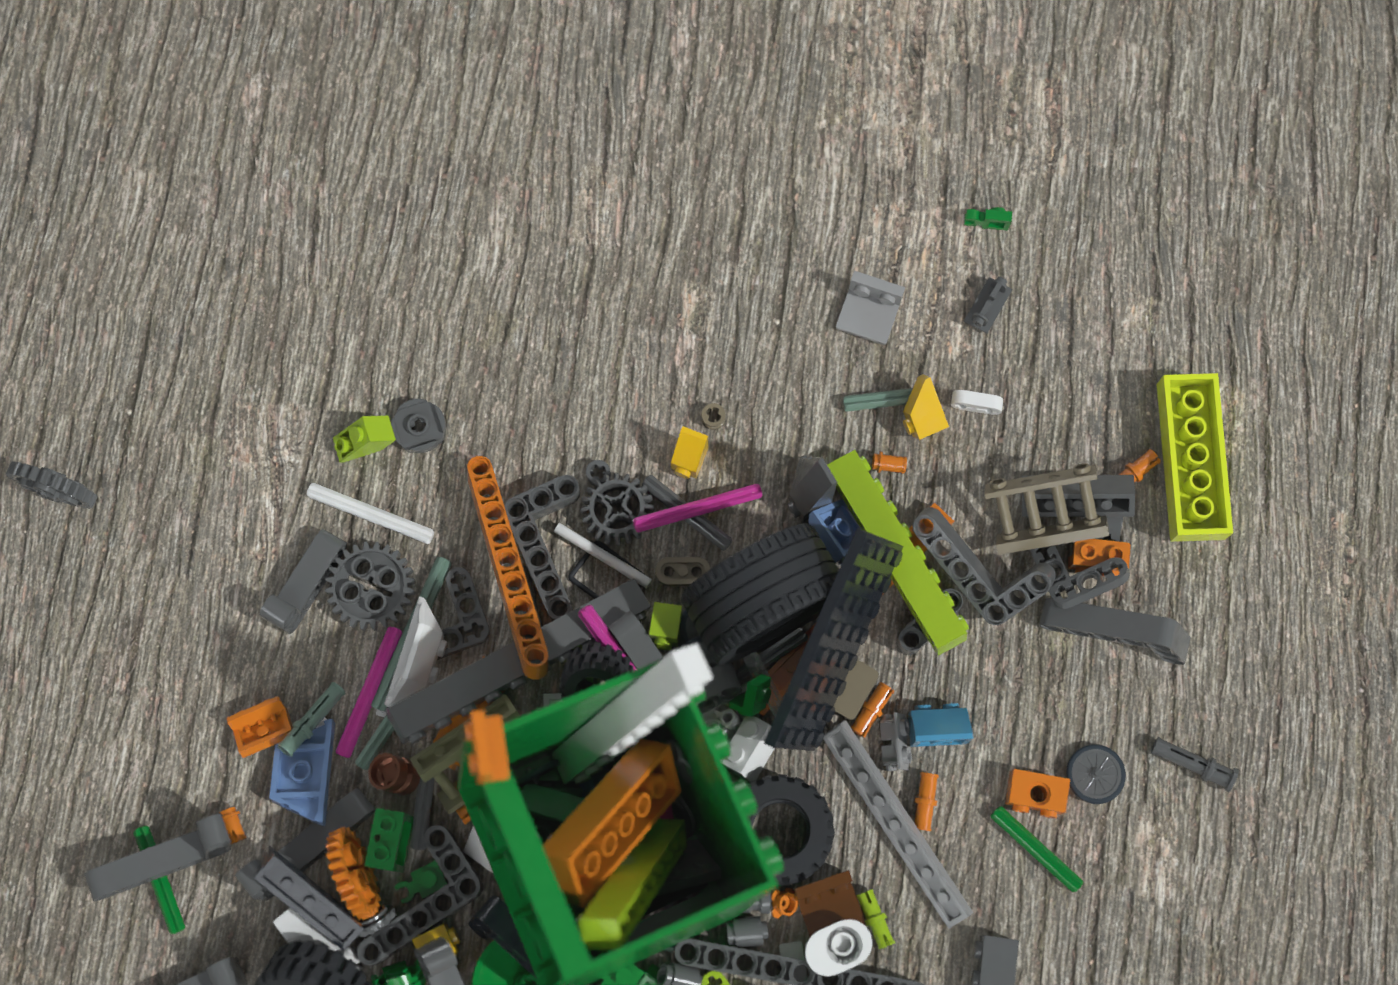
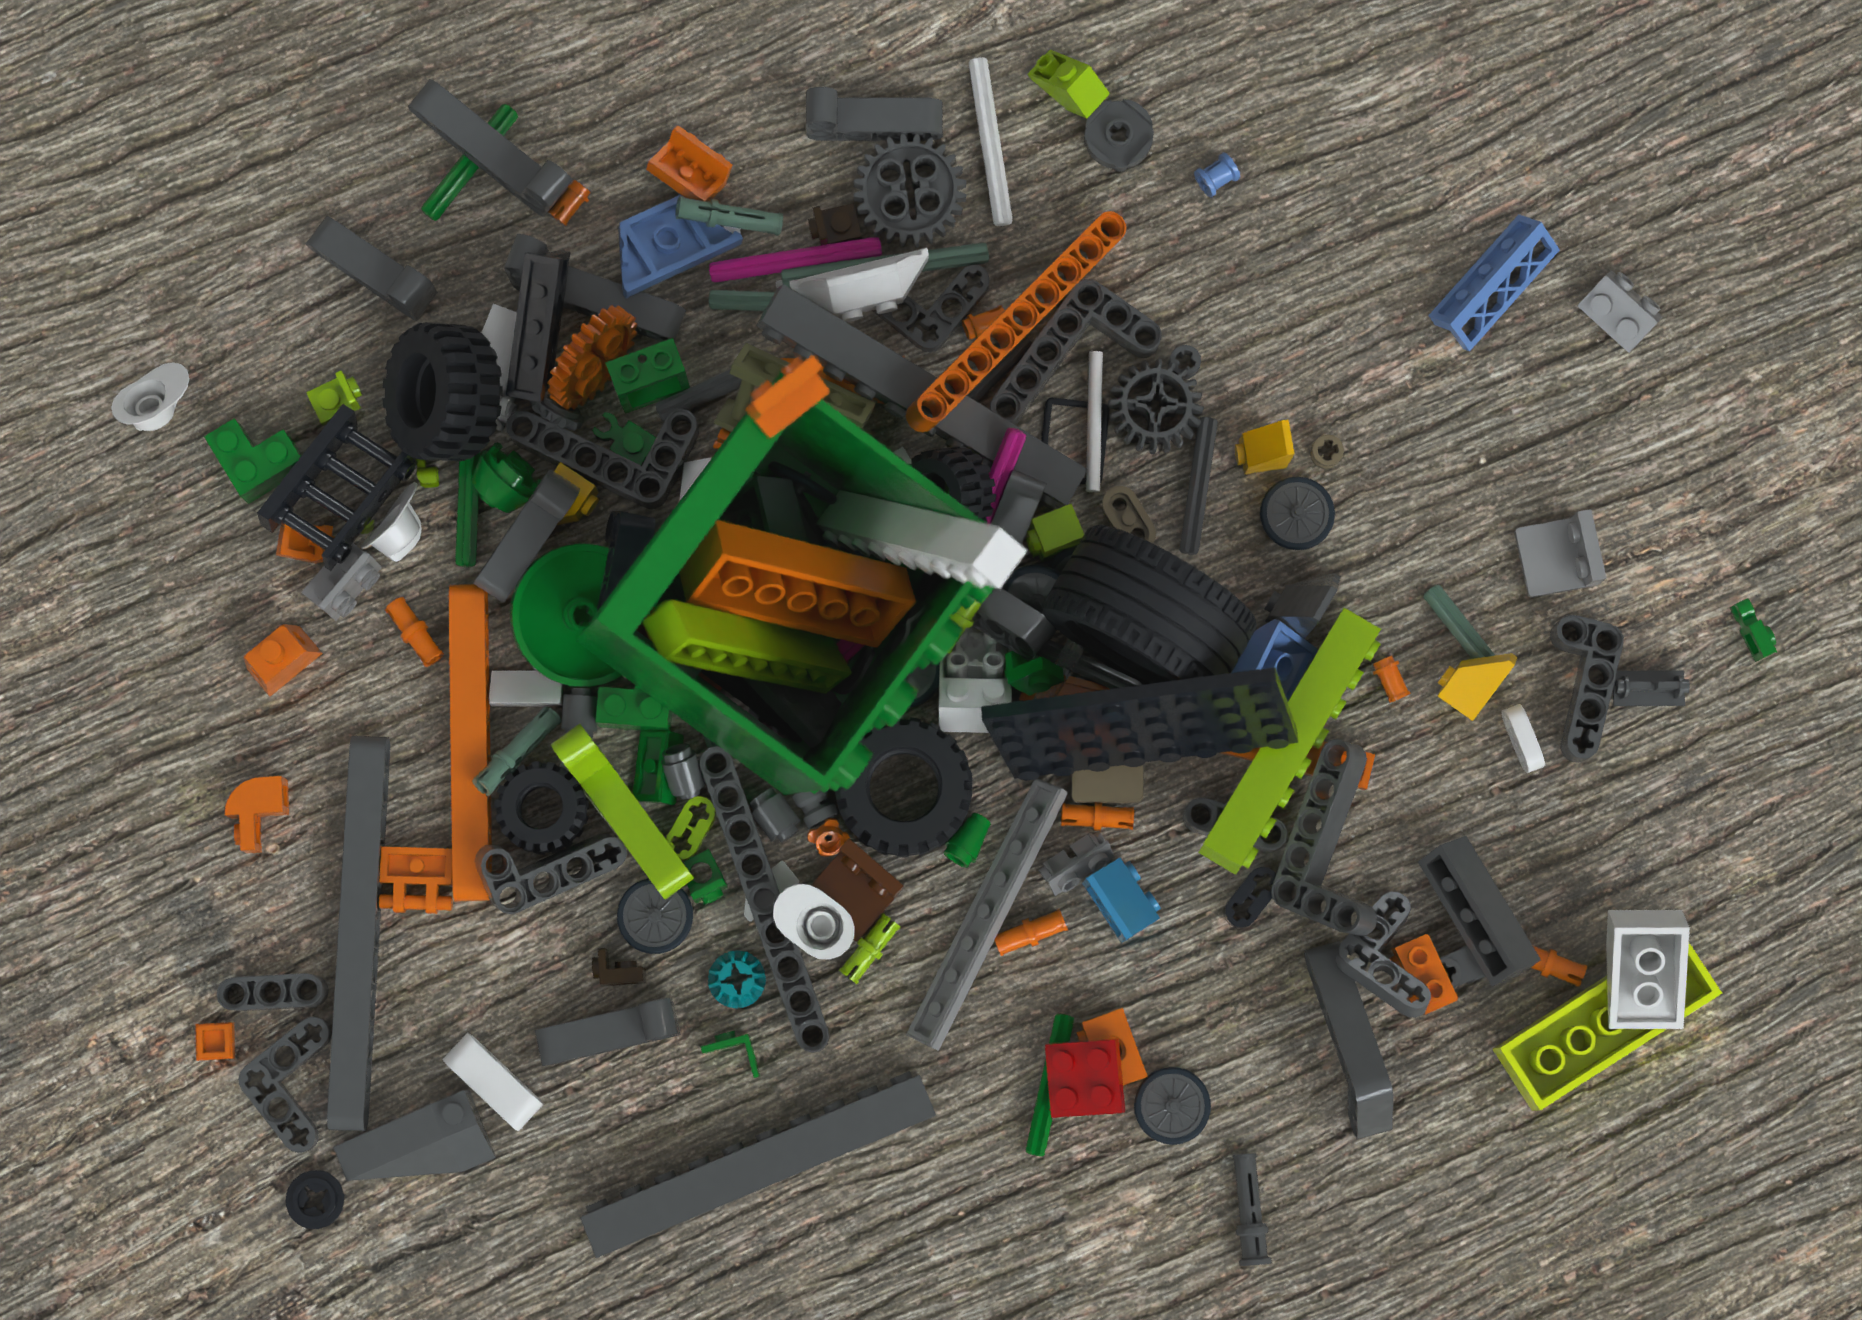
camera: 55 degrees right, 5 degrees up
(362, 650) = (835, 224): none -> dark brown bracket
(393, 774) = (720, 337): copper wheel -> none
(486, 378) = (1217, 174): none -> medium blue bush
(491, 591) = (975, 325): none -> orange pin
(660, 245) = (1491, 275): none -> medium blue fence
(697, 508) = (1209, 493): dark pink axle -> none
(732, 178) = (1621, 310): none -> light grey bracket
(743, 459) = (1297, 513): none -> dark grey wheel
(841, 808) = (967, 841): none -> green cone
(965, 345) = (1584, 690): none -> dark grey beam
(978, 643) = (1244, 892): none -> black beam
(1037, 534) = (1406, 890): dark tan fence -> none
(1048, 822) = (1085, 1078): none -> red plate
(1178, 410) = (1646, 968): none -> white slope

